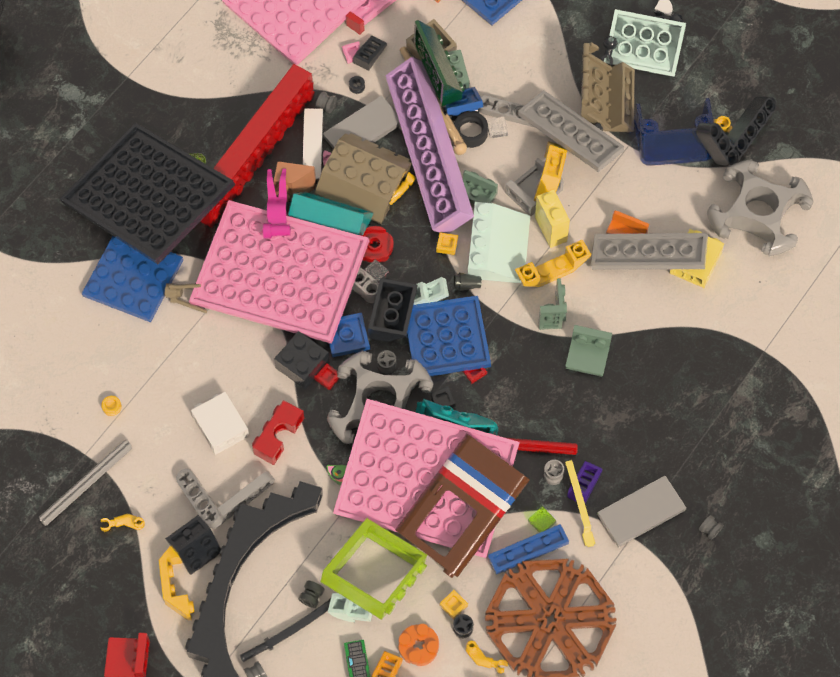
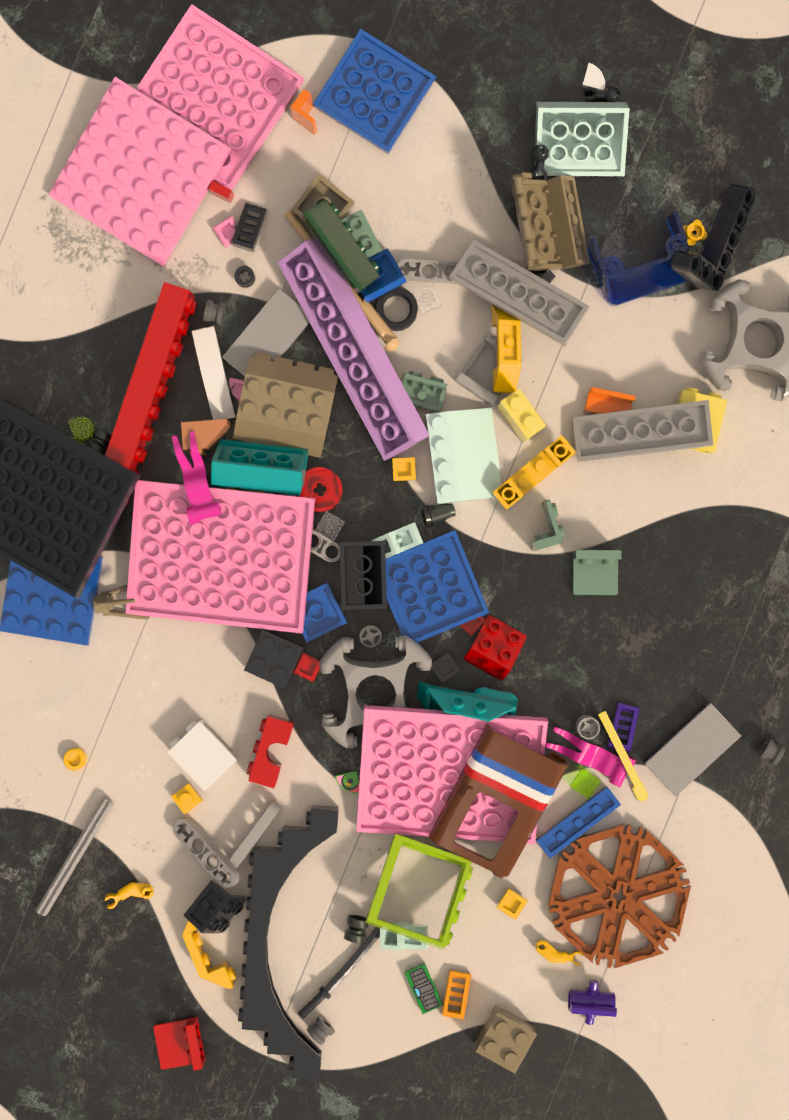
camera: 15 degrees left, 25 degrees up
(195, 457) = (187, 798): none -> yellow plate
(404, 185) = (336, 405): yellow arm -> none
(422, 634) = (497, 955): orange plate -> none
(465, 622) = (530, 929): black wheel -> none
(488, 394) = (495, 648): none -> red bracket
(546, 446) = (563, 697): red axle -> none
(555, 500) = (593, 756): none -> dark pink flag

